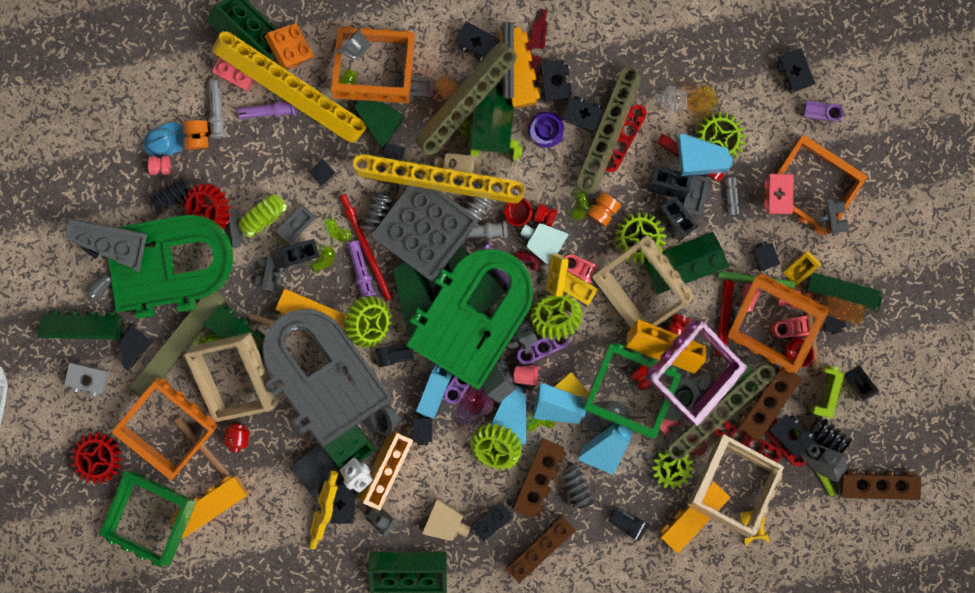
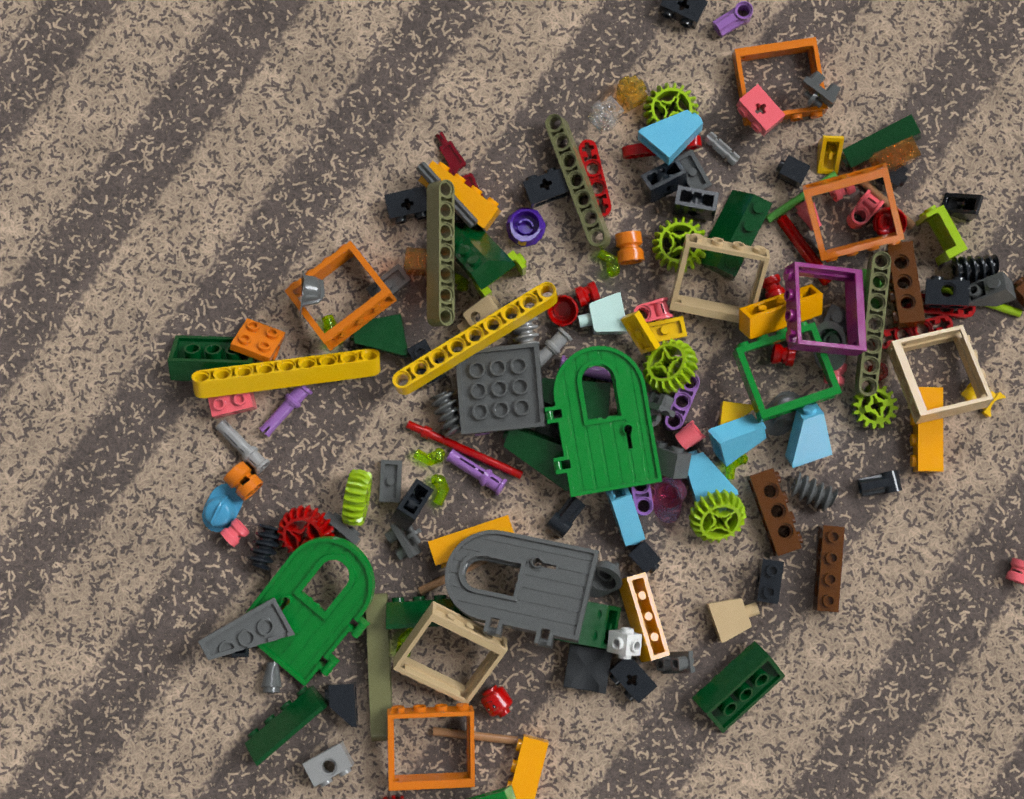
camera: 40 degrees left, 5 degrees down
(322, 517) = (627, 705): yellow piece -> none
(323, 173) = (376, 419): black brick -> none
(367, 326) = (520, 507): lime gear -> none
(531, 258) = (605, 339): dark red arm -> none
(550, 70) = (503, 192): black brick -> none

